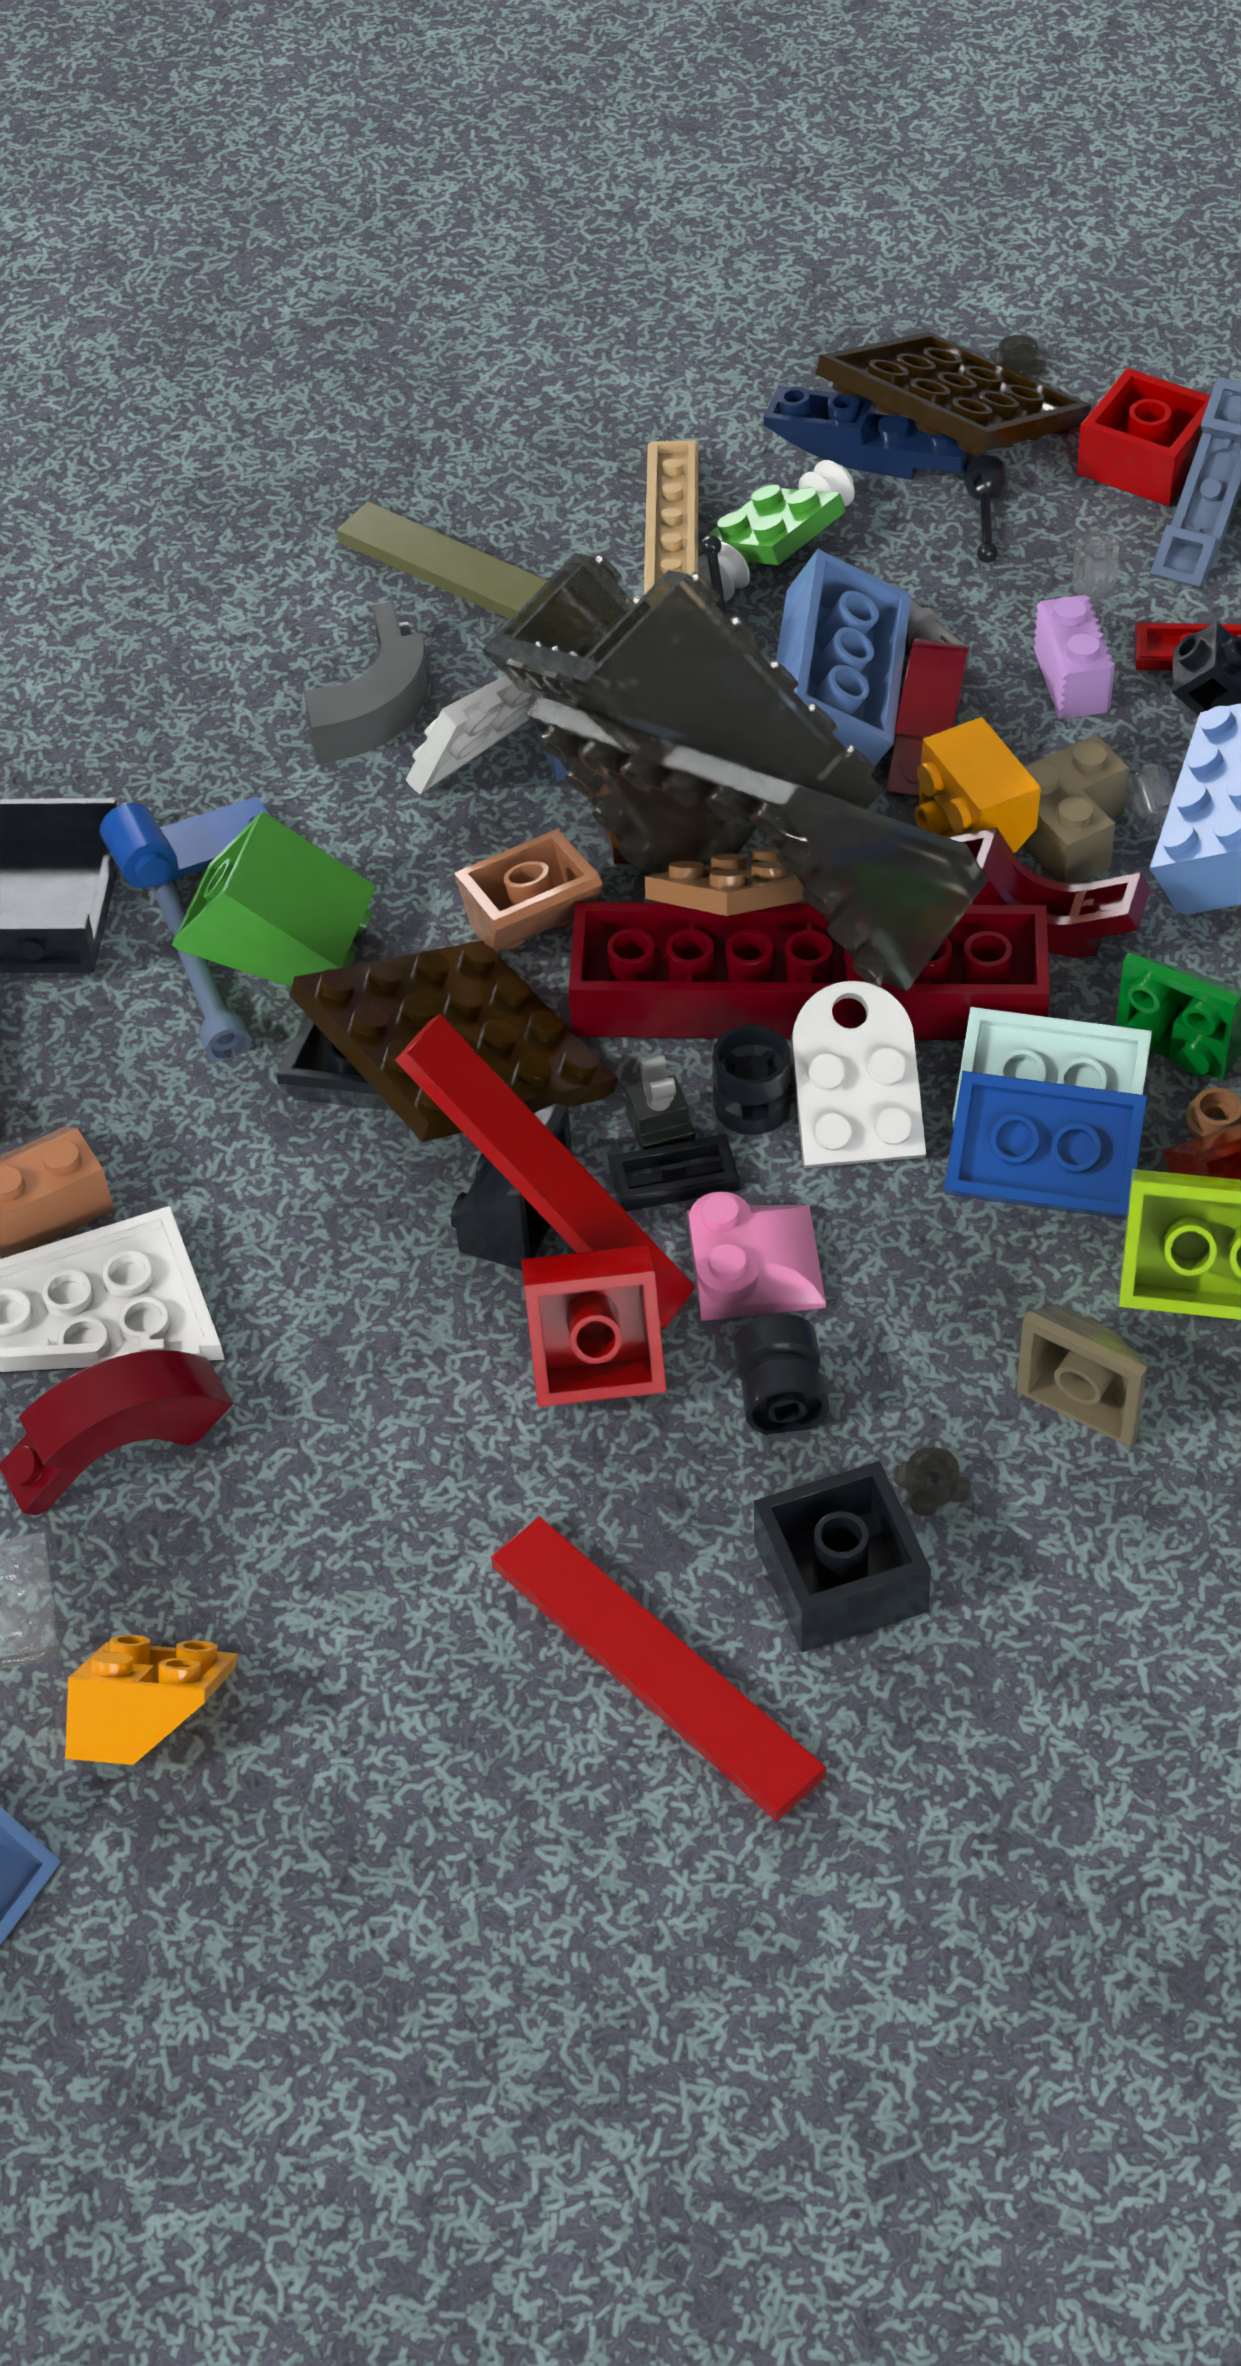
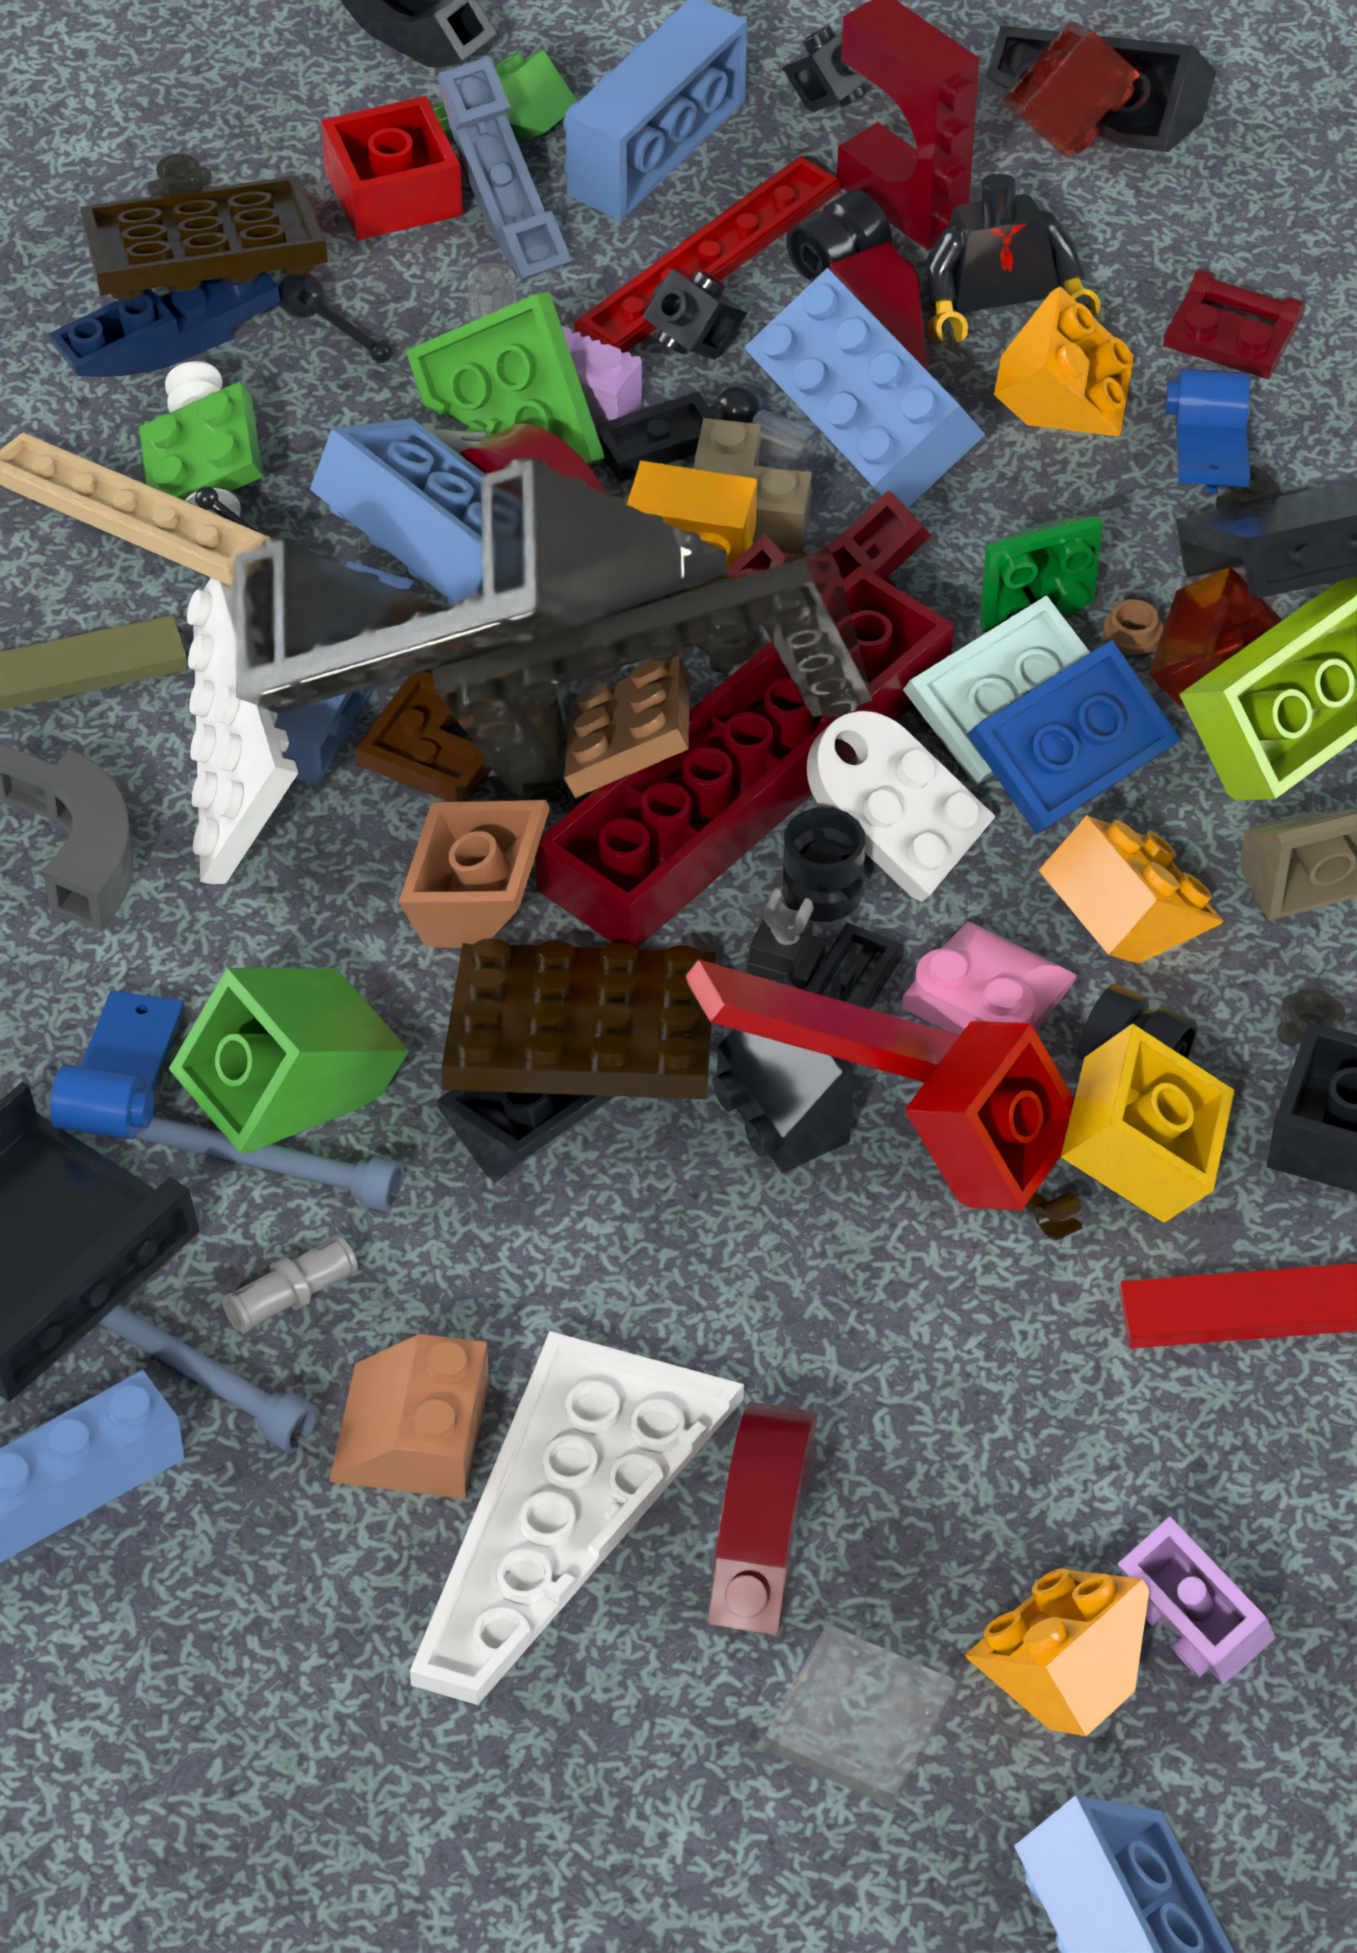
camera: 55 degrees left, 0 degrees up
(93, 1046) = (289, 1284): none -> light grey pin
(249, 1751) = (1198, 1603): none -> lavender brick
(572, 1437) = (1057, 1215): none -> dark brown hand
(683, 1426) = (1148, 1123): none -> yellow brick
(933, 1278) = (1128, 890): none -> light orange slope
(1011, 616) = (508, 373): none -> bright green plate
(1057, 724) = (669, 429): none -> black plate

